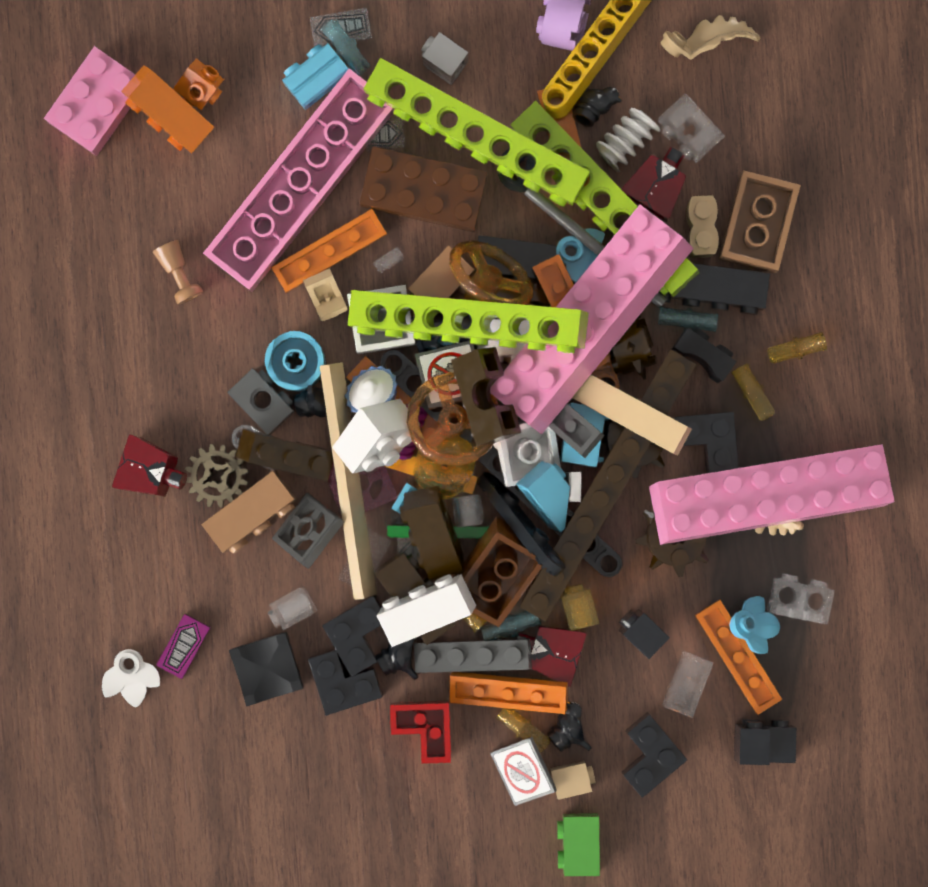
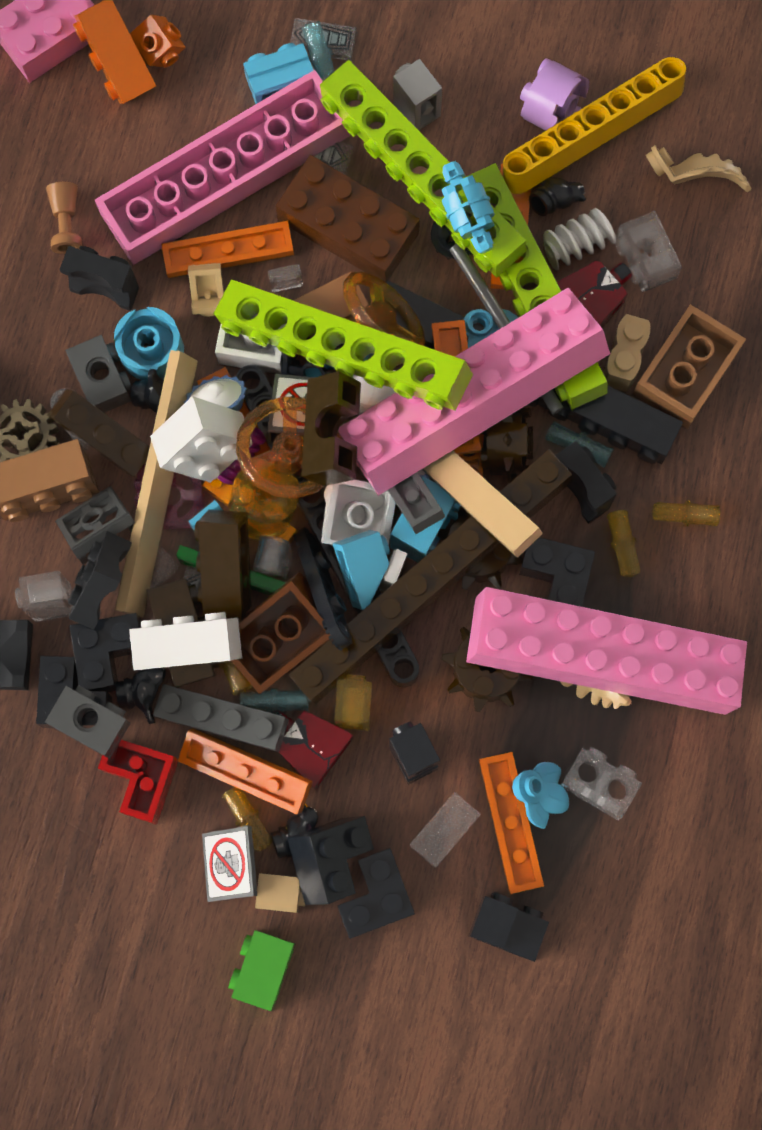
camera: 20 degrees right, 10 degrees down
(220, 315) = (100, 275): none -> black brick
(333, 581) = (97, 579): none -> black brick
(353, 706) = (68, 716): none -> dark grey brick
(526, 170) = (477, 202): none -> medium azure piece
(598, 740) = (322, 858): none -> black brick

